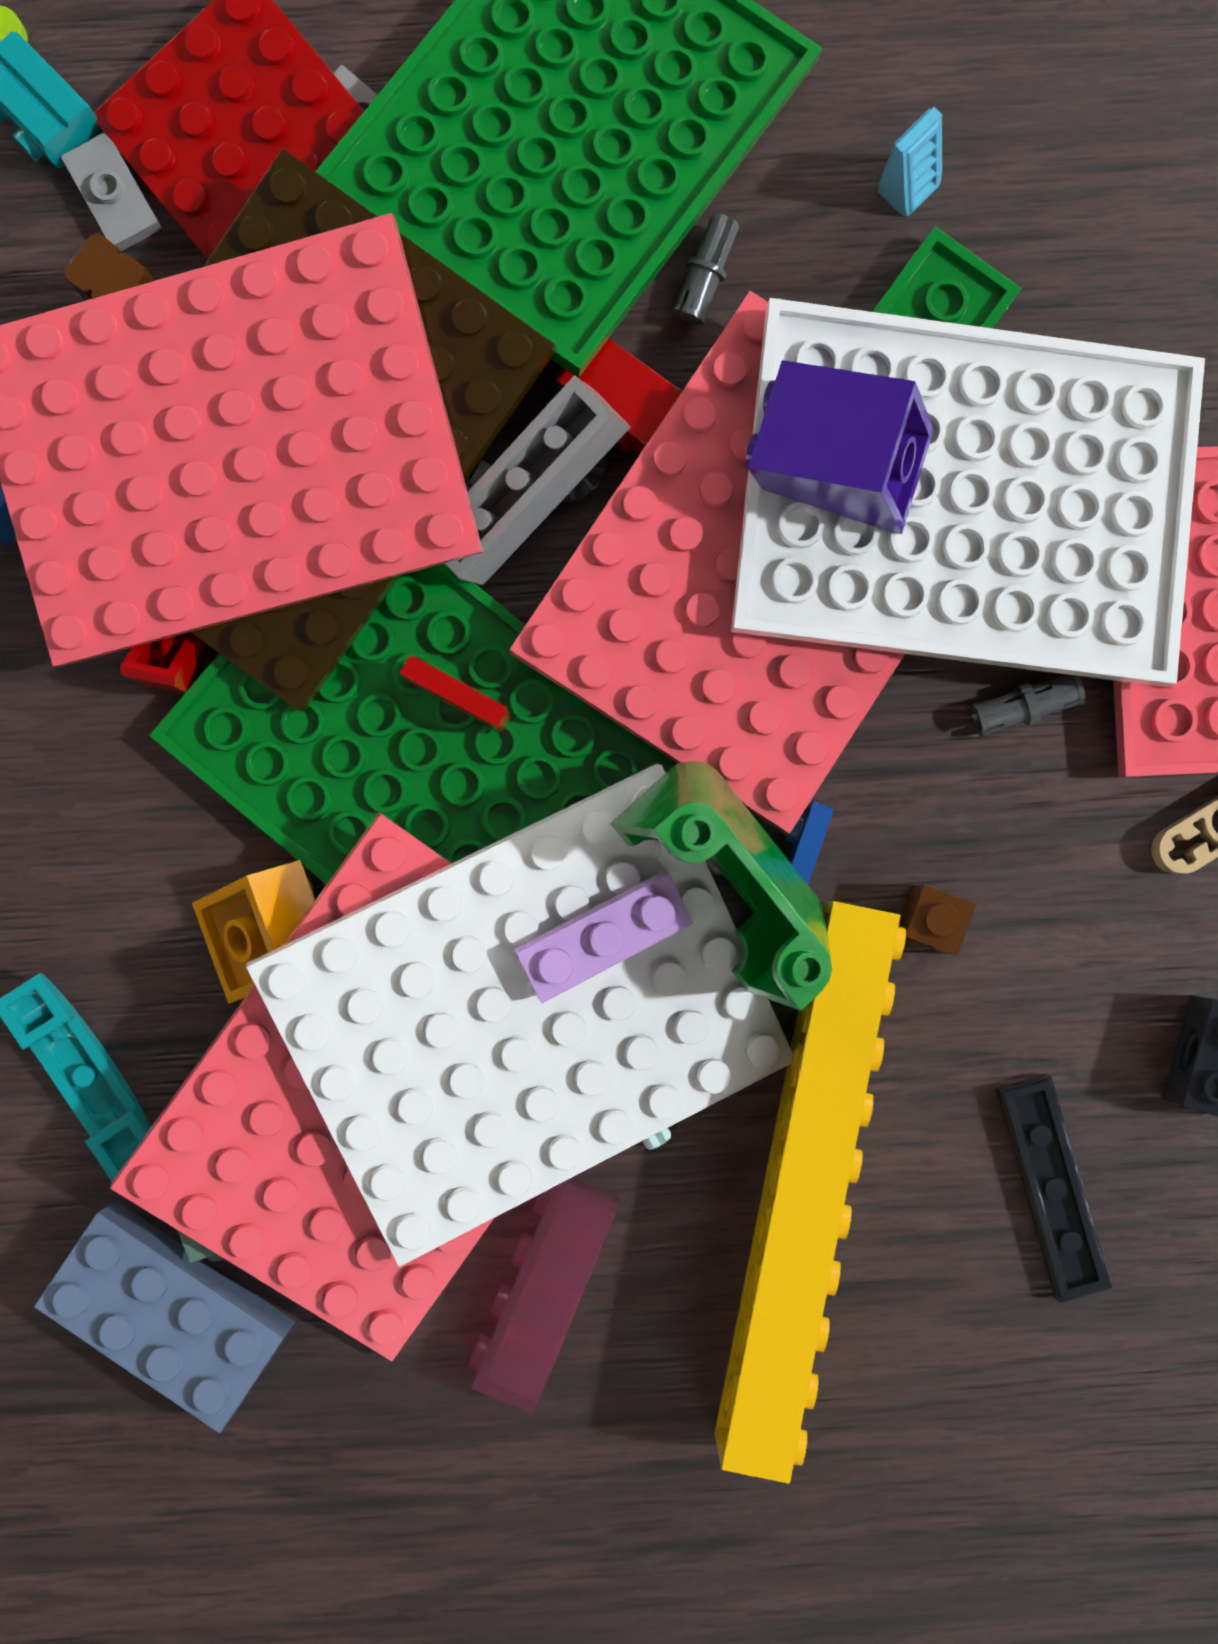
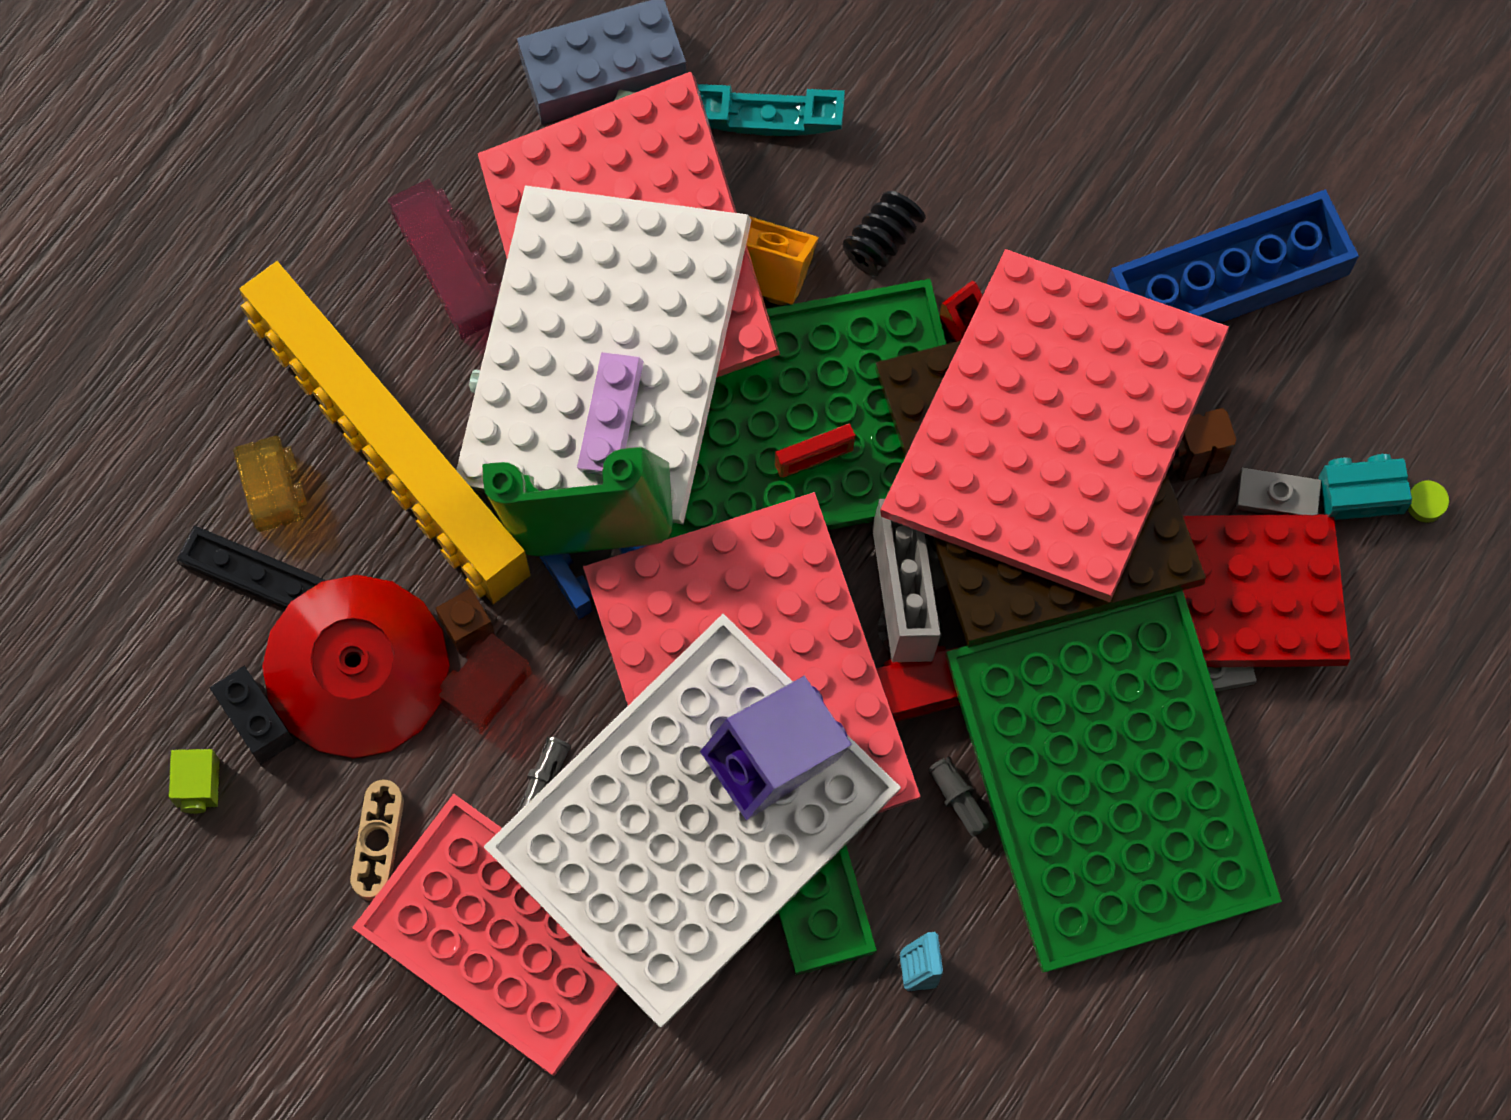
camera: 130 degrees right, 15 degrees down
(132, 833) = (880, 230): none -> black piece
(952, 1261) = (269, 484): none -> clear yellow brick
(982, 845) = (484, 682): none -> clear red brick
(1018, 1011) = (364, 706): none -> red dish

